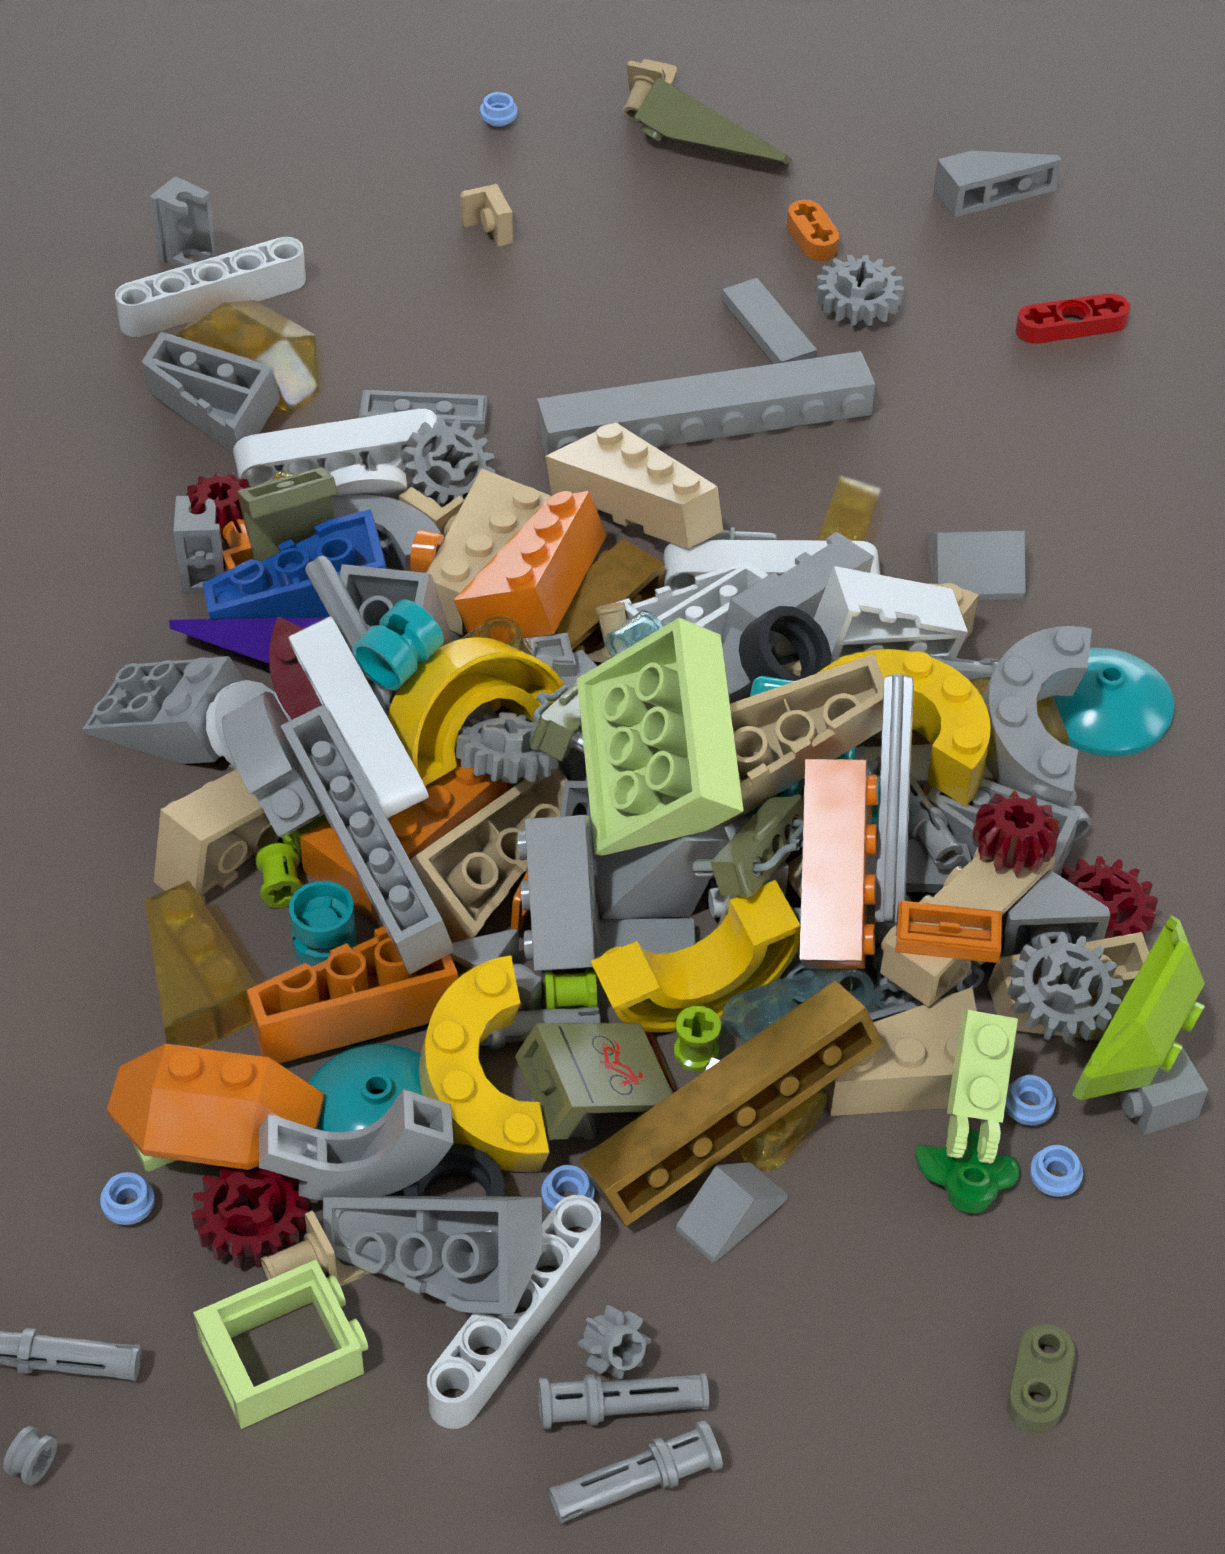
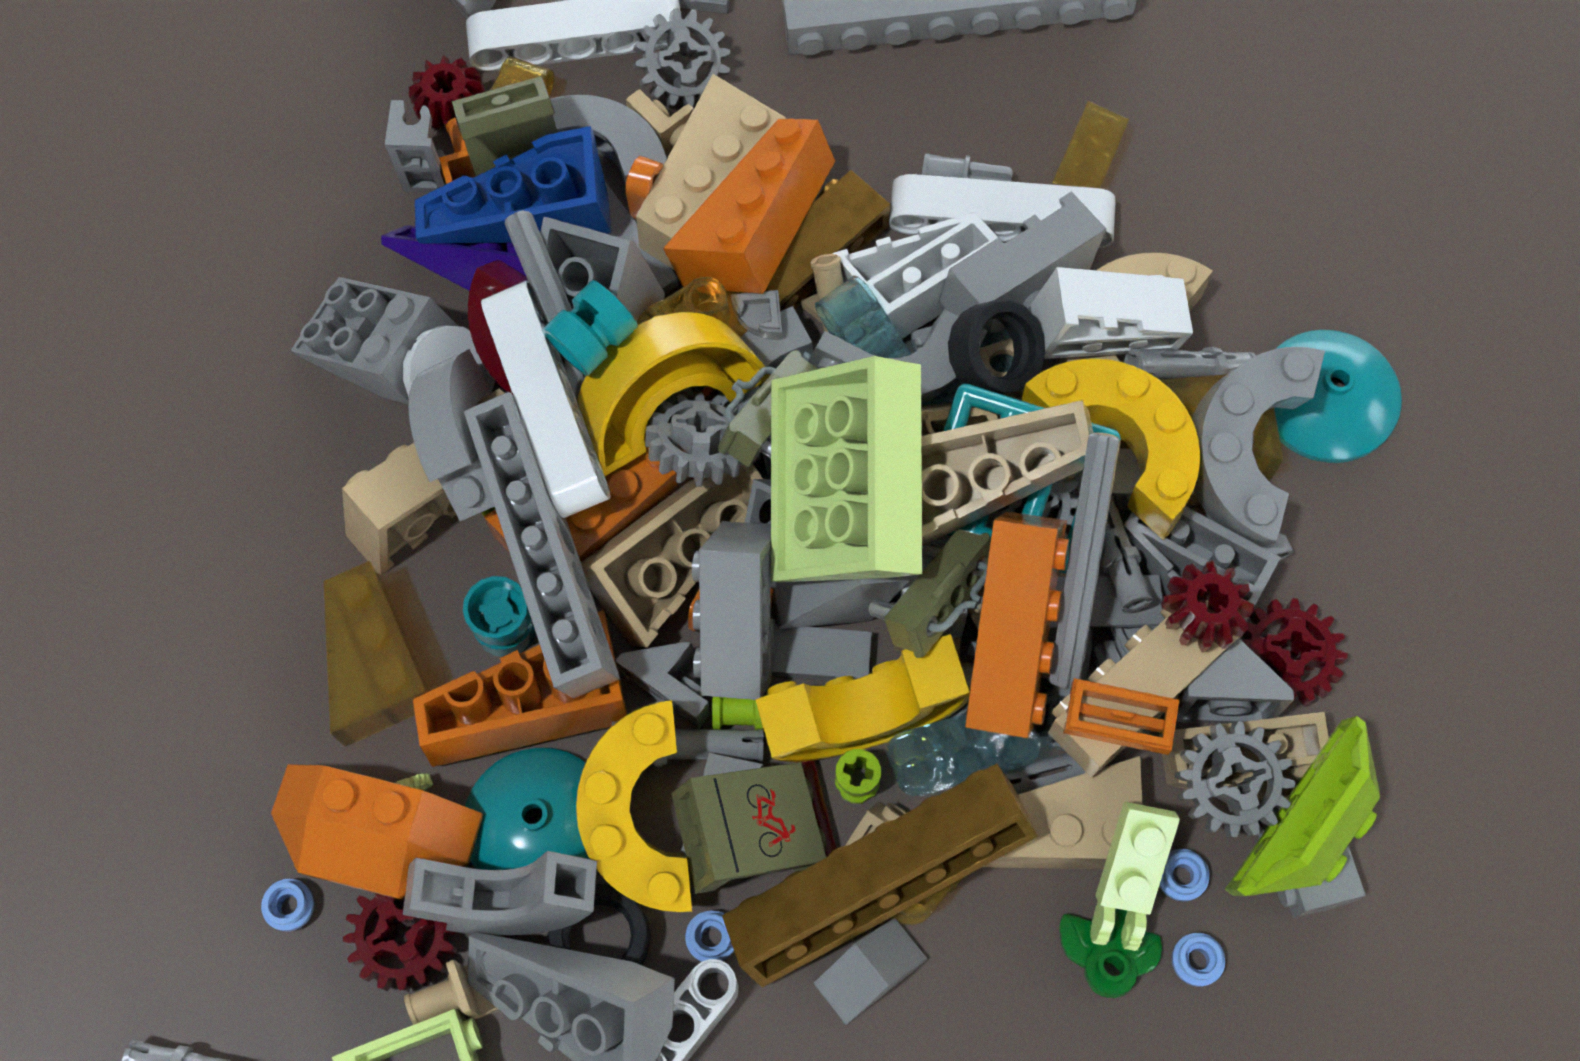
camera: 10 degrees right, 20 degrees up
(278, 874) = (465, 547): lime bush -> none
(354, 479) = (608, 84): white tile -> none
(638, 485) = (874, 104): tan wedge -> none
(980, 562) = (1219, 215): light grey slope -> none

